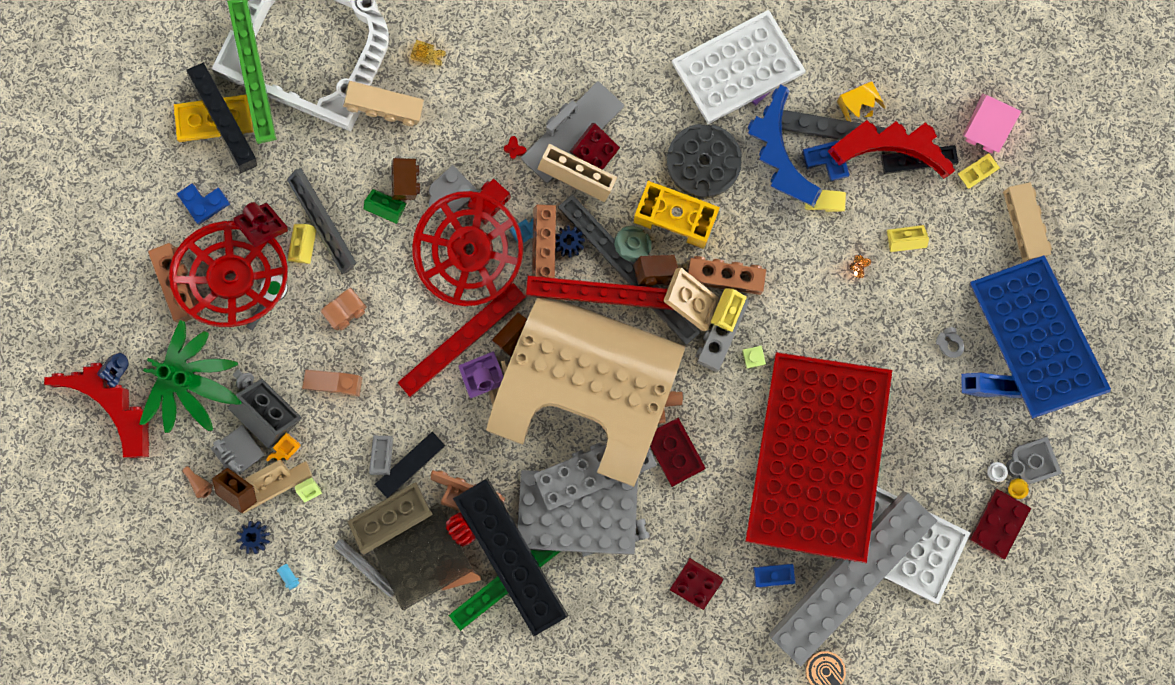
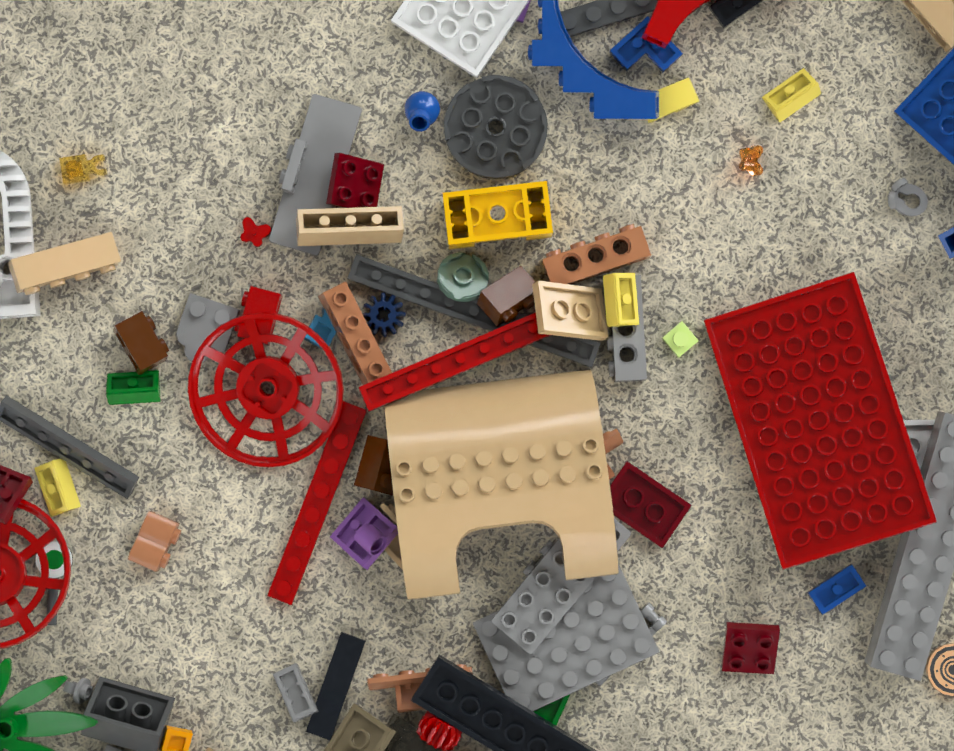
camera: 25 degrees left, 5 degrees up
(332, 382) = (188, 637): nougat slope -> none
(662, 125) = (421, 110): none -> blue piece

